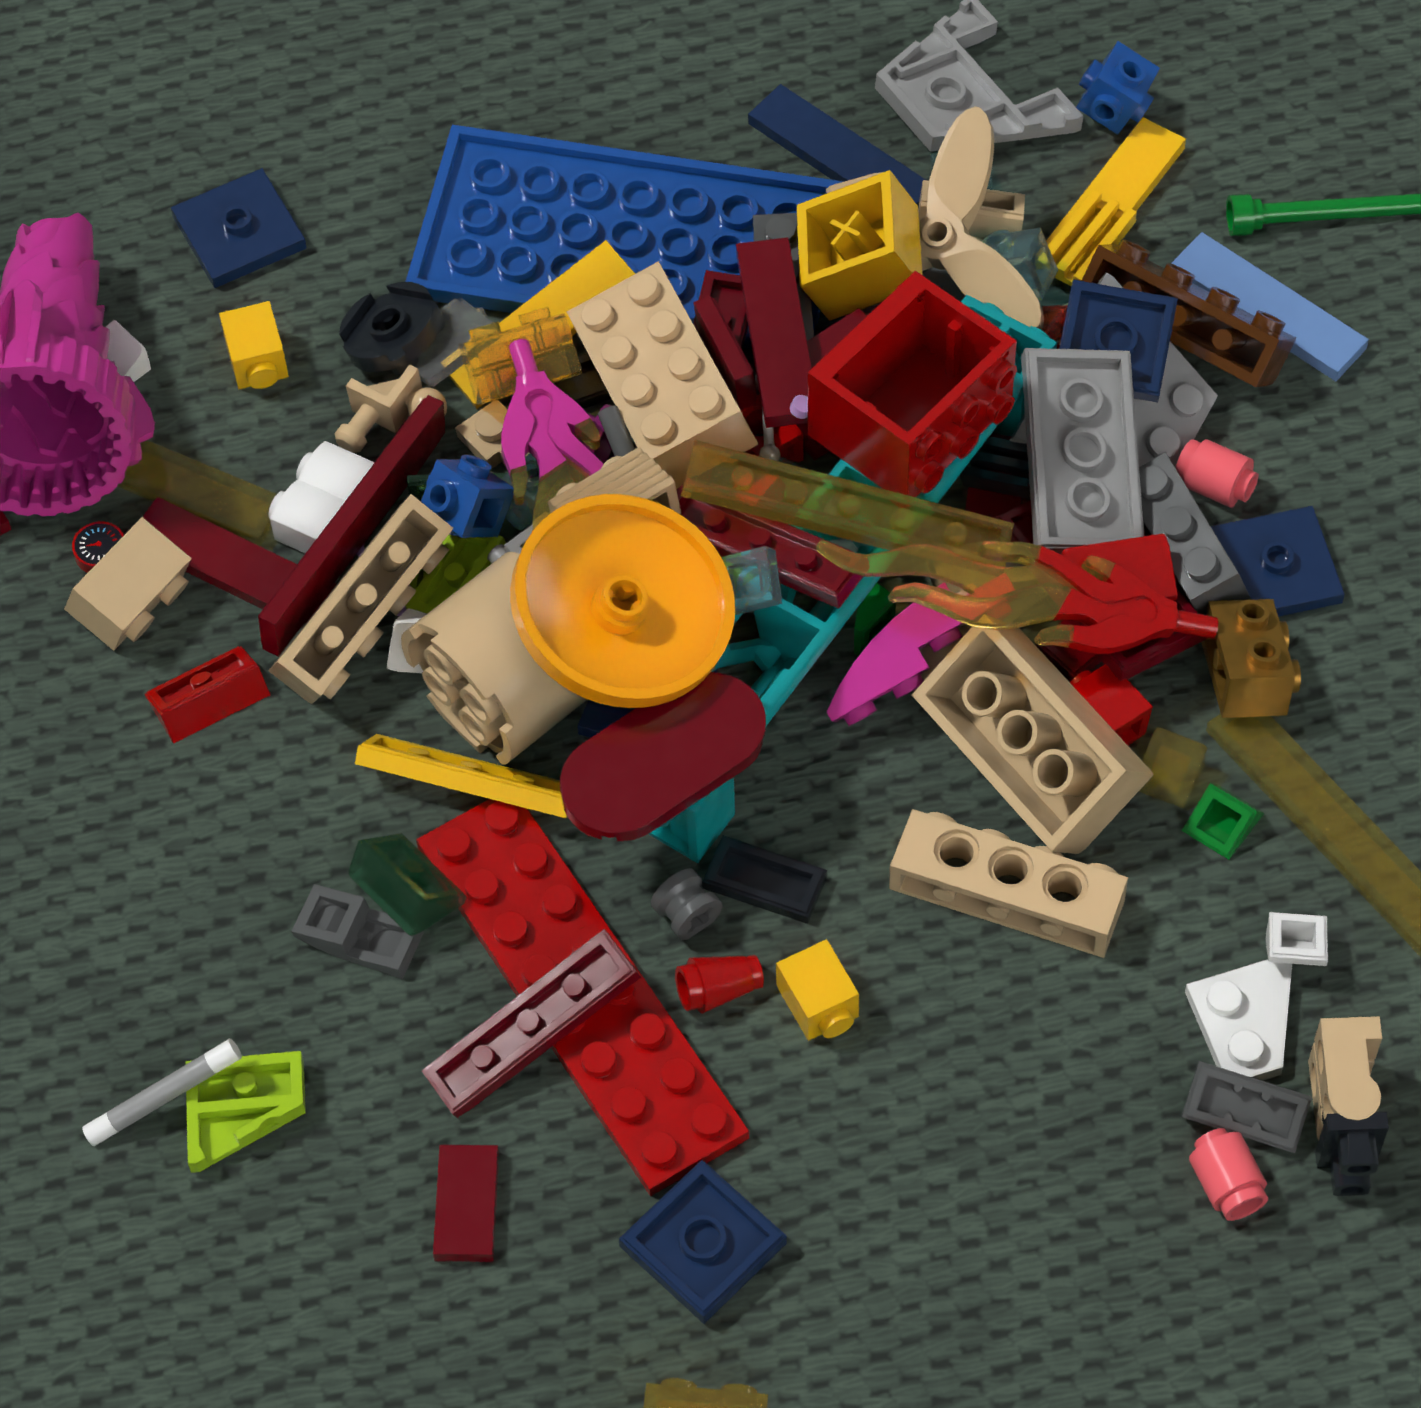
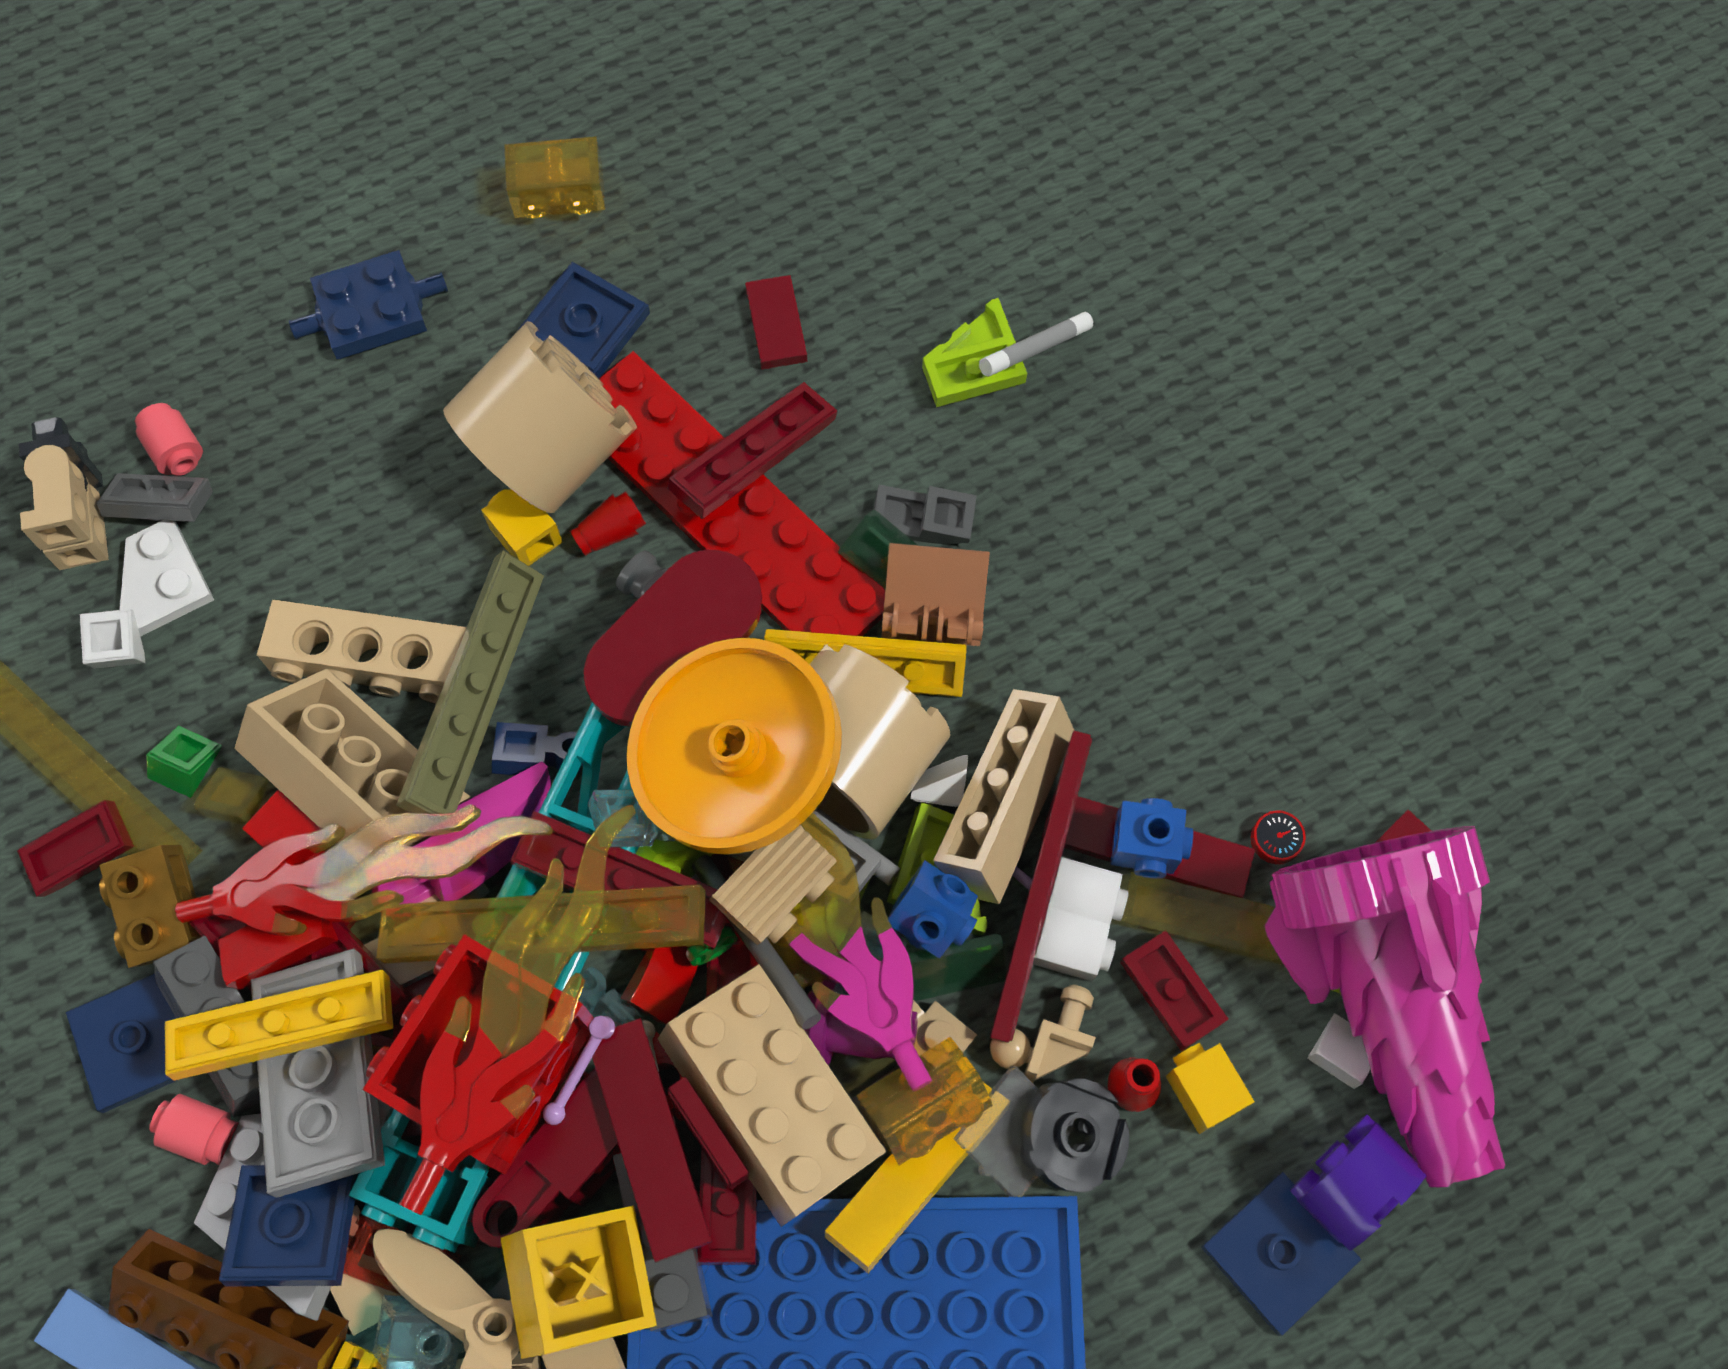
camera: 165 degrees right, 10 degrees up
(128, 584) = (1231, 782): tan brick -> none
(152, 239) = (1358, 1183): none -> dark purple brick
(207, 693) = (1127, 711): red slope -> none
(232, 535) = (1151, 837): none -> blue brick
(255, 431) = (1173, 990): none -> dark red plate
(318, 360) = (1127, 1092): none -> red cone
(361, 815) = (935, 594): none -> nougat hinge
(764, 879) = (572, 623): black tile -> none
(770, 1045) = (538, 419): none -> tan brick
(849, 753) = (526, 745): none -> dark blue plate
(873, 350) = (512, 1038): none -> piece
(891, 795) = (471, 689): none -> olive tile
(971, 1320) = (368, 304): none -> dark blue plate
(1112, 482) = (278, 1025): none -> yellow tile
(1336, 740) = (75, 848): none -> dark red tile

